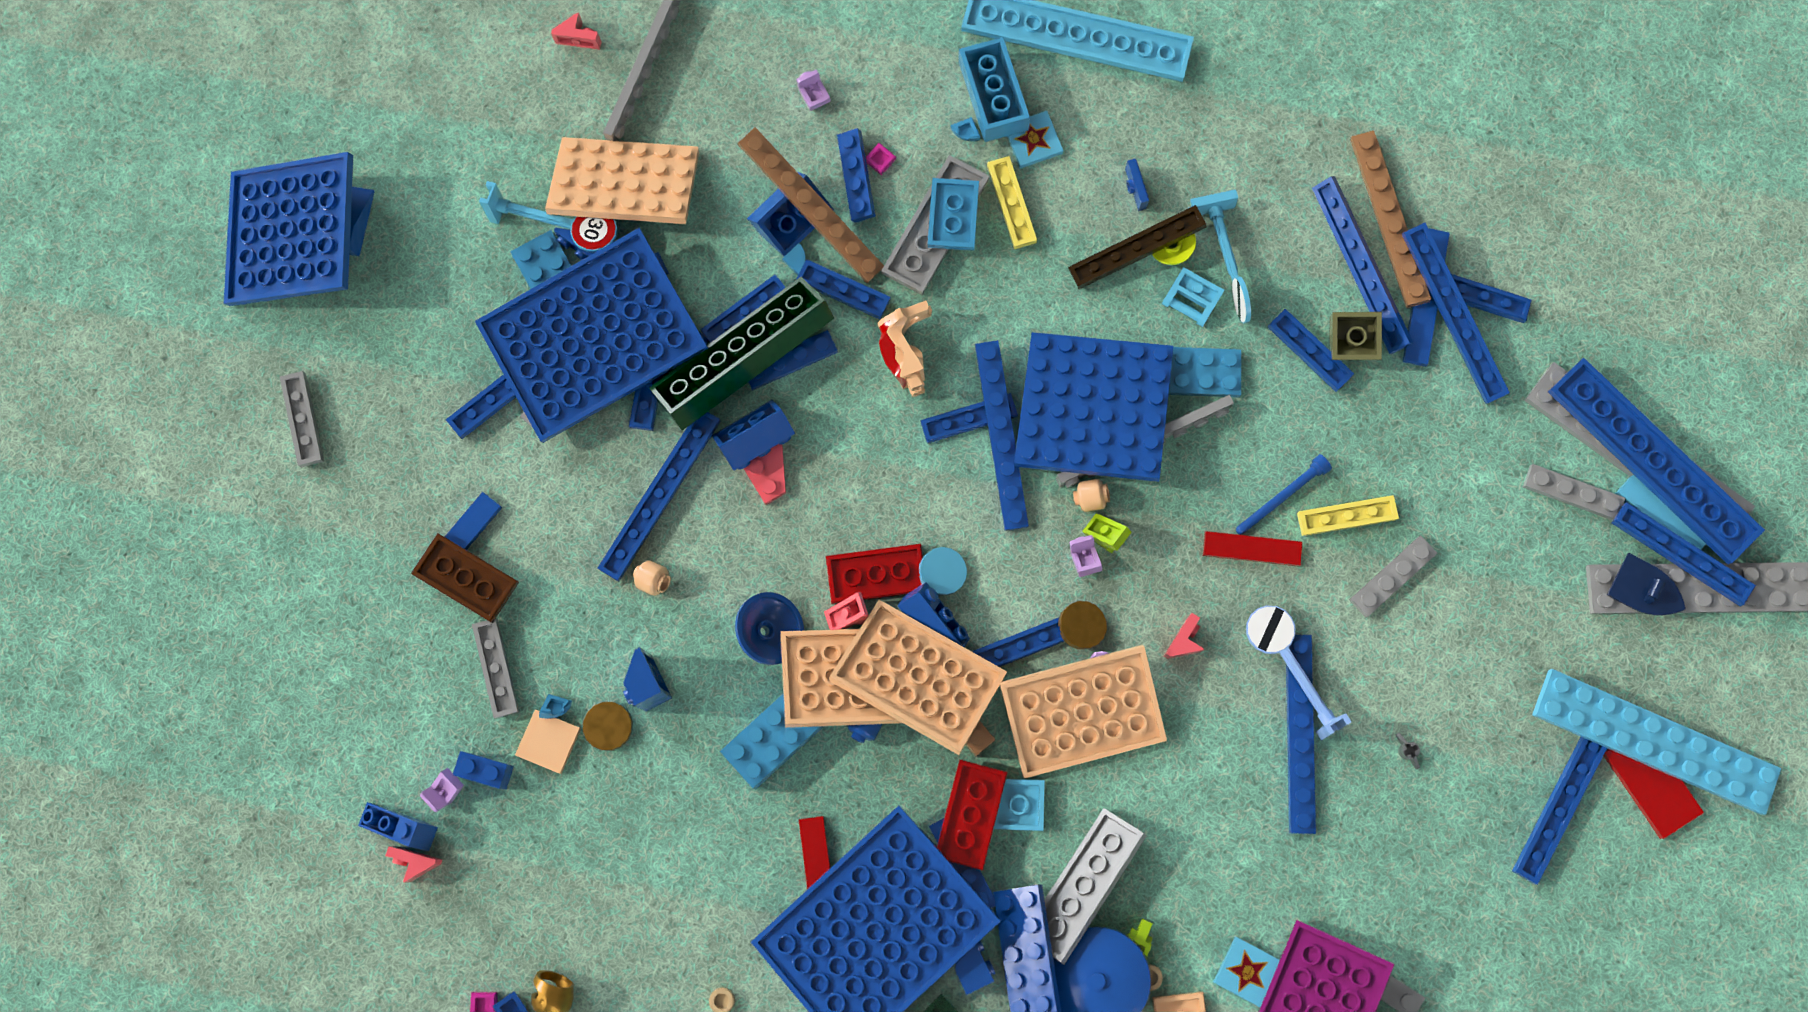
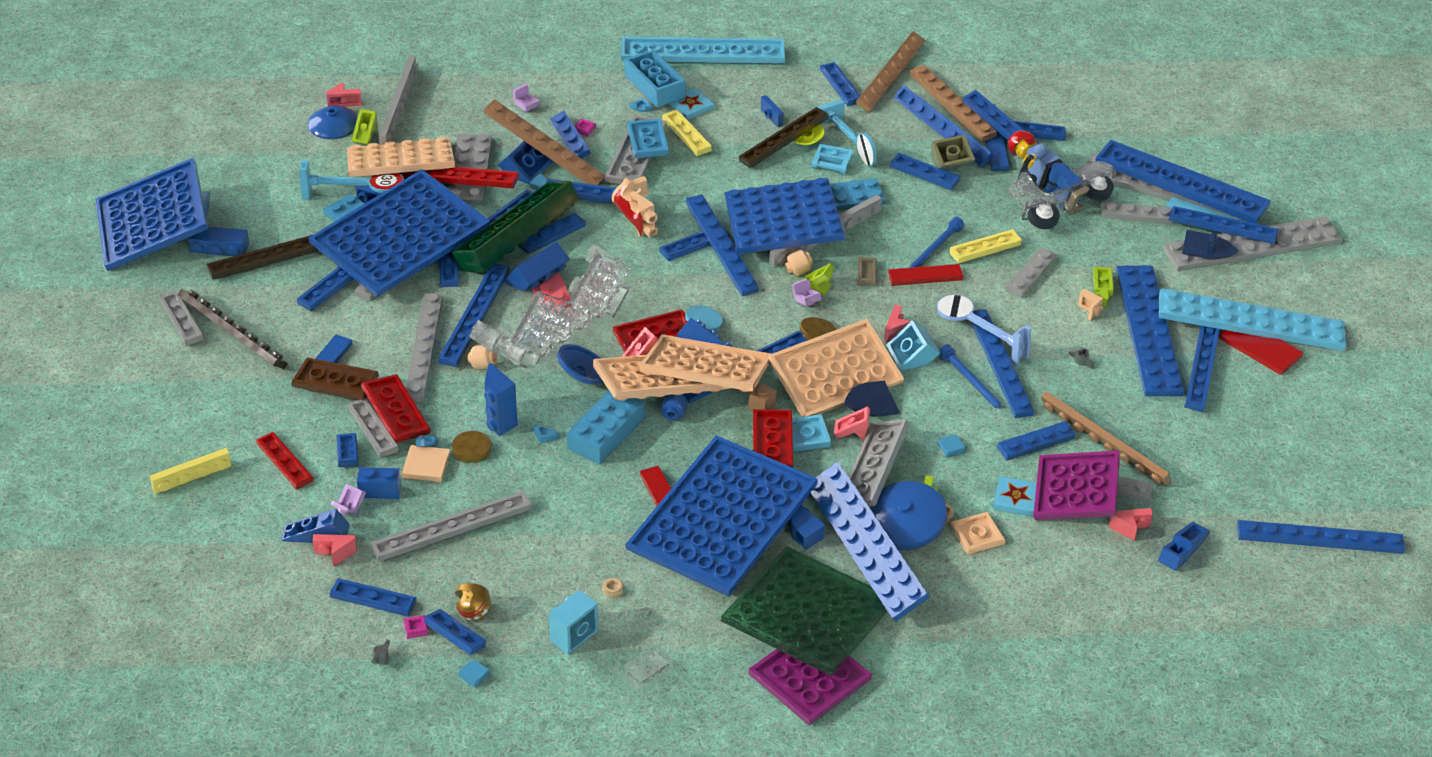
camera: 20 degrees left, 35 degrees down
(261, 697) = (190, 470): none -> light yellow plate
(359, 455) = (235, 330): none -> plate
(375, 290) = (220, 241): none -> blue brick
(384, 695) = (284, 460): none -> red tile
(419, 327) = (260, 257): none -> dark brown plate
(444, 946) = (373, 597): none -> blue tile
(459, 699) = (347, 450): none -> blue plate
(527, 647) = (396, 408): none -> red tile
(555, 858) = (450, 526): none -> light grey plate
(556, 89) = (332, 122): none -> blue dish
(586, 535) = (424, 346): none -> light grey plate
(589, 108) = (365, 127): none -> lime slope
(700, 723) = (545, 434): none -> dark azure tile
(708, 248) = (472, 176): none -> red plate
(712, 211) = (471, 152): none -> light grey plate
(754, 540) = (557, 322): none -> clear brick
(1077, 809) = (854, 422): none -> coral slope
(1114, 772) = (872, 395): none -> dark blue shield
(1177, 524) = (867, 271): none -> dark tan tile
(1193, 866) = (951, 445): none -> dark azure tile
(1194, 686) = (913, 347): none -> medium azure slope
(1237, 707) = (948, 353): none -> blue piece
(1248, 141) = (840, 83): none -> blue tile
(1303, 882) = (1036, 440): none -> blue plate
(1324, 133) = (890, 71): none -> medium nougat plate
(1394, 917) = (1110, 442): none -> medium nougat plate
(1454, 656) = (1090, 302): none -> light nougat bracket
(1481, 624) = (1103, 283): none -> lime hinge
(1511, 728) = (1149, 332): none -> blue plate
(1524, 433) = (1062, 185): none -> piece

